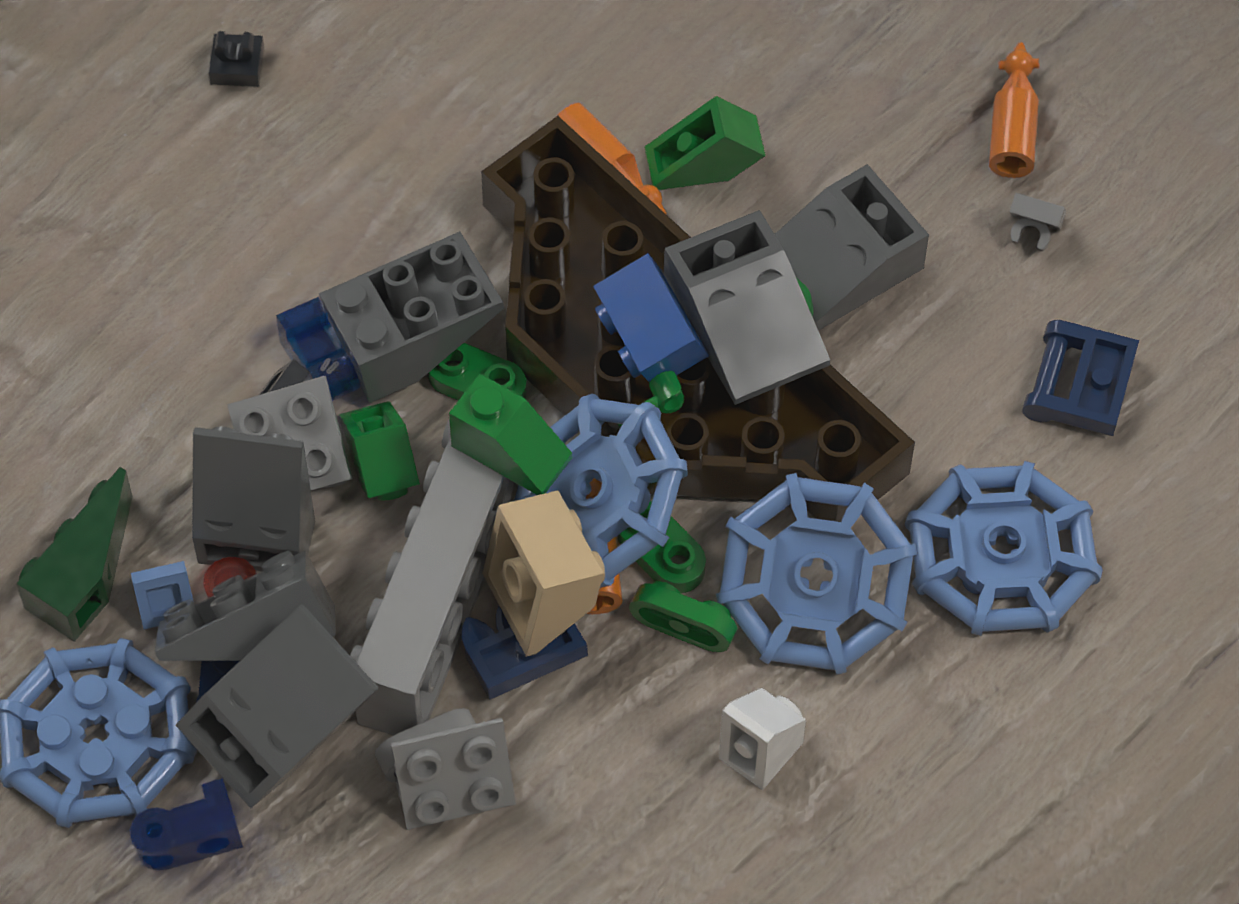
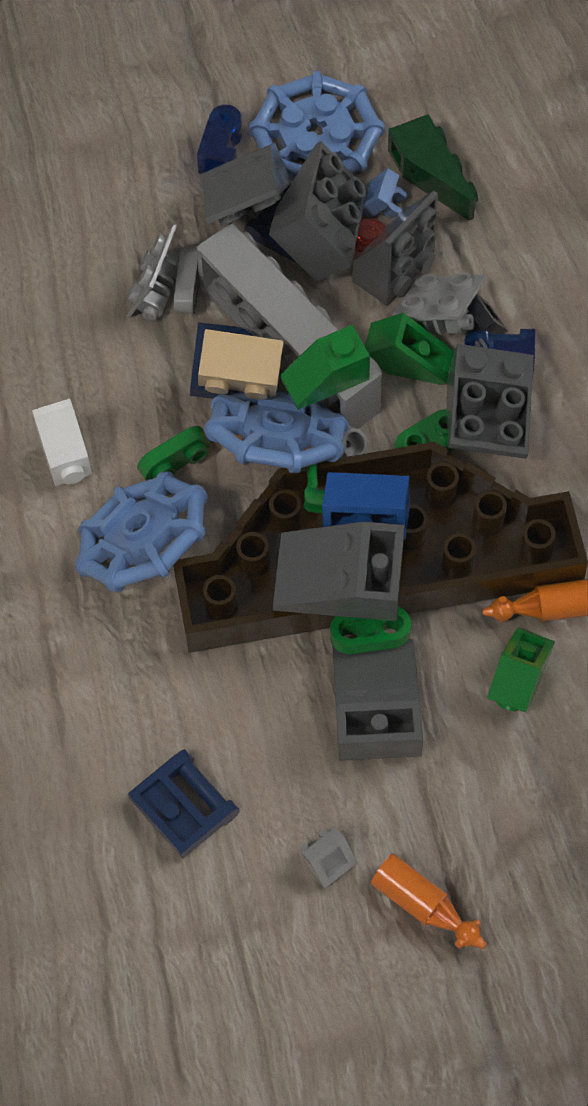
camera: 125 degrees right, 5 degrees up
(657, 561) = (237, 479): green plate -> none
(998, 574) = (103, 693): medium blue plate -> none

